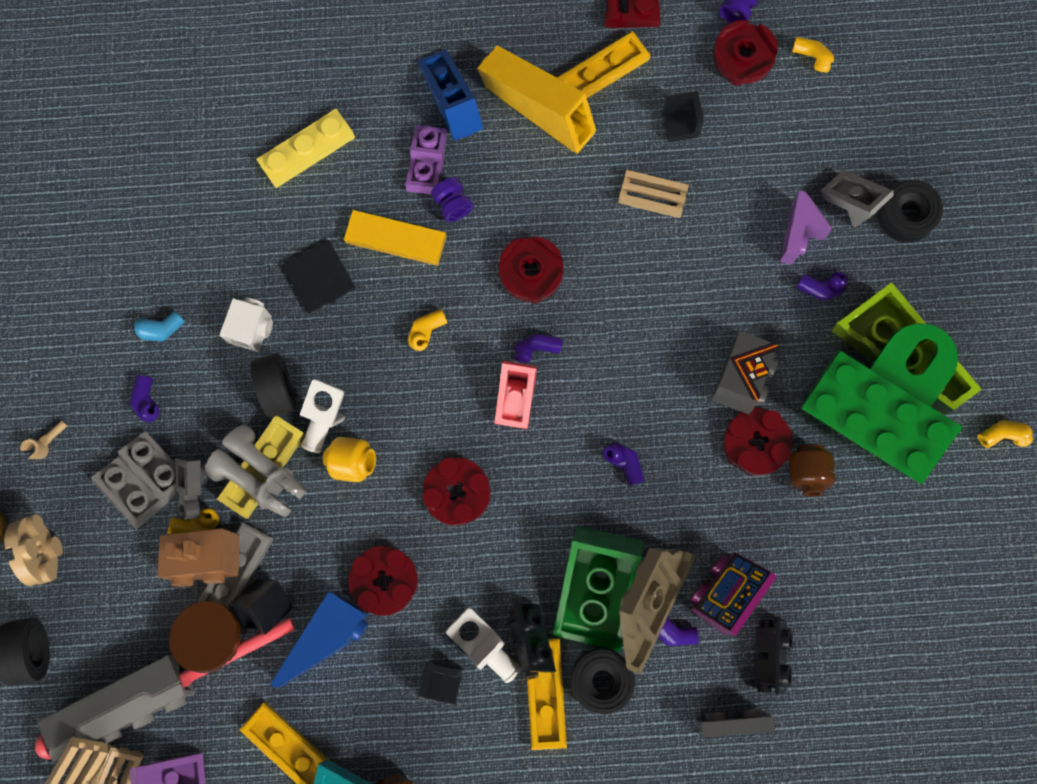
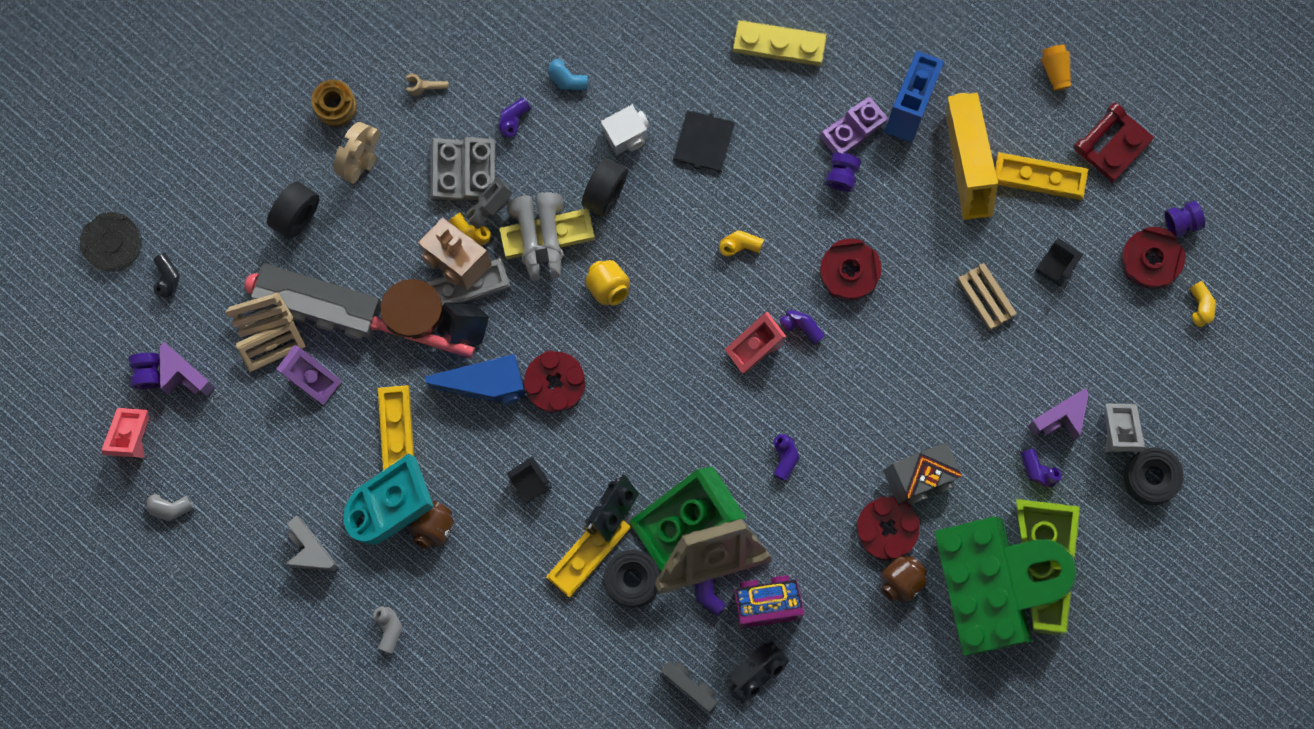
camera: 45 degrees right, 0 degrees up
(320, 417) = (615, 237): white bracket -> none
(395, 237) = (780, 162): yellow tile -> none
(448, 474) = (648, 385): dark red plate -> none
(485, 647) = (578, 485): white bracket -> none
(1016, 431) = (1065, 682): yellow arm -> none

